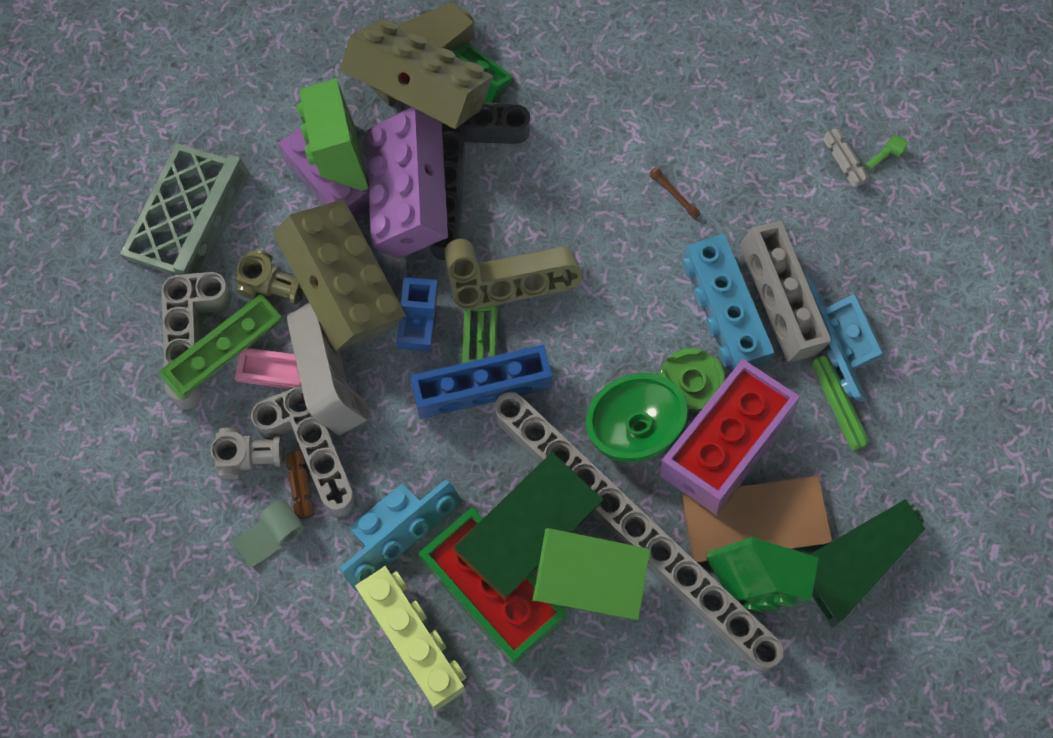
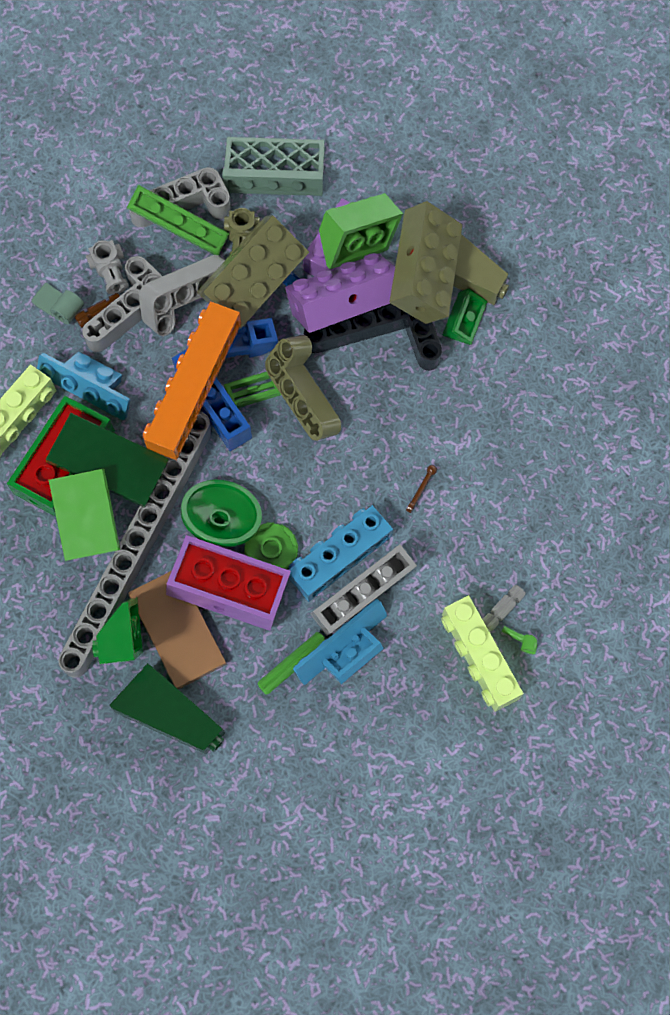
camera: 70 degrees right, 0 degrees up
(268, 369) = (176, 254): bright pink tile -> none
(465, 387) = (192, 380): none -> orange brick
(896, 195) = (481, 653): none -> yellowish green brick

